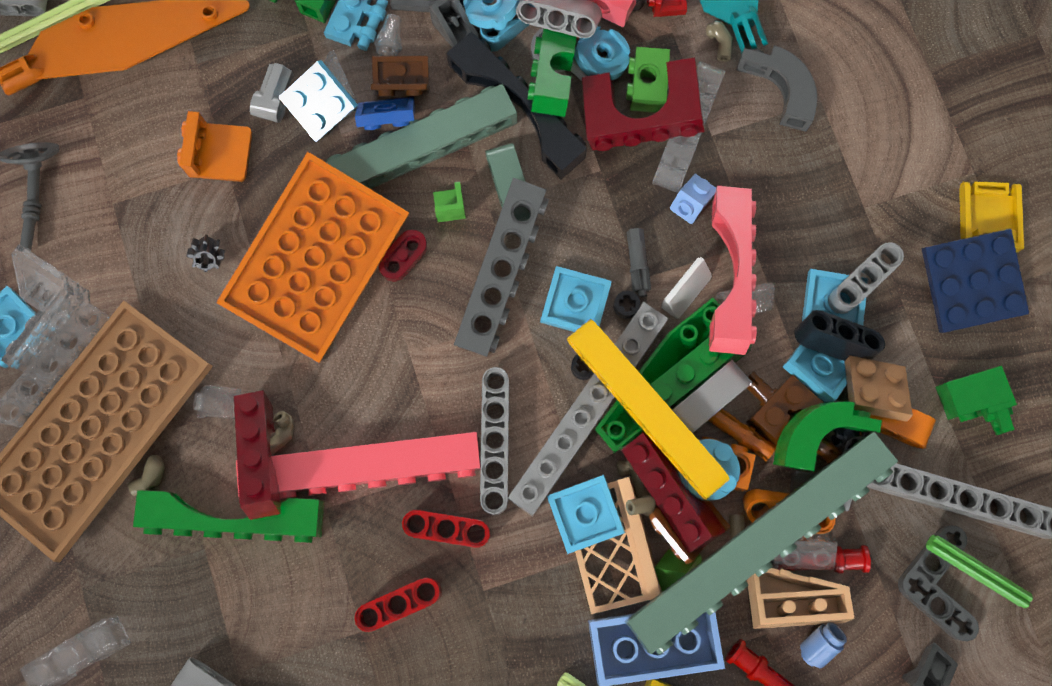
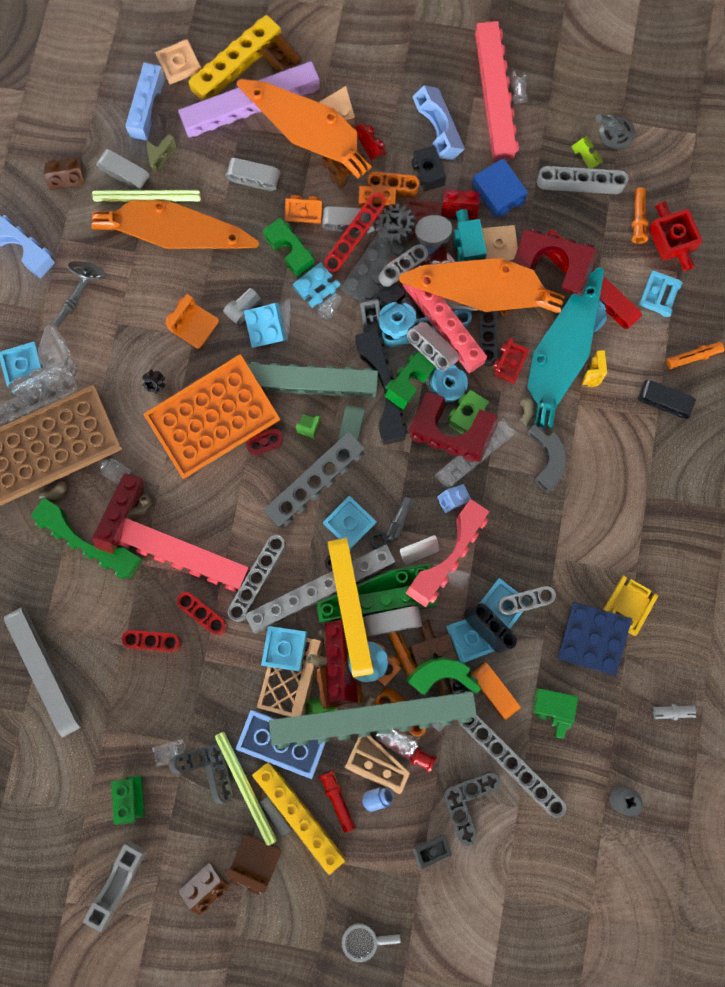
camera: 30 degrees right, 0 degrees up
(395, 111) = (300, 352): blue plate -> none
(400, 74) = (322, 333): reddish brown bracket -> none
(878, 388) = (495, 669): medium nougat plate -> none
(979, 571) = (494, 808): bright green axle -> none

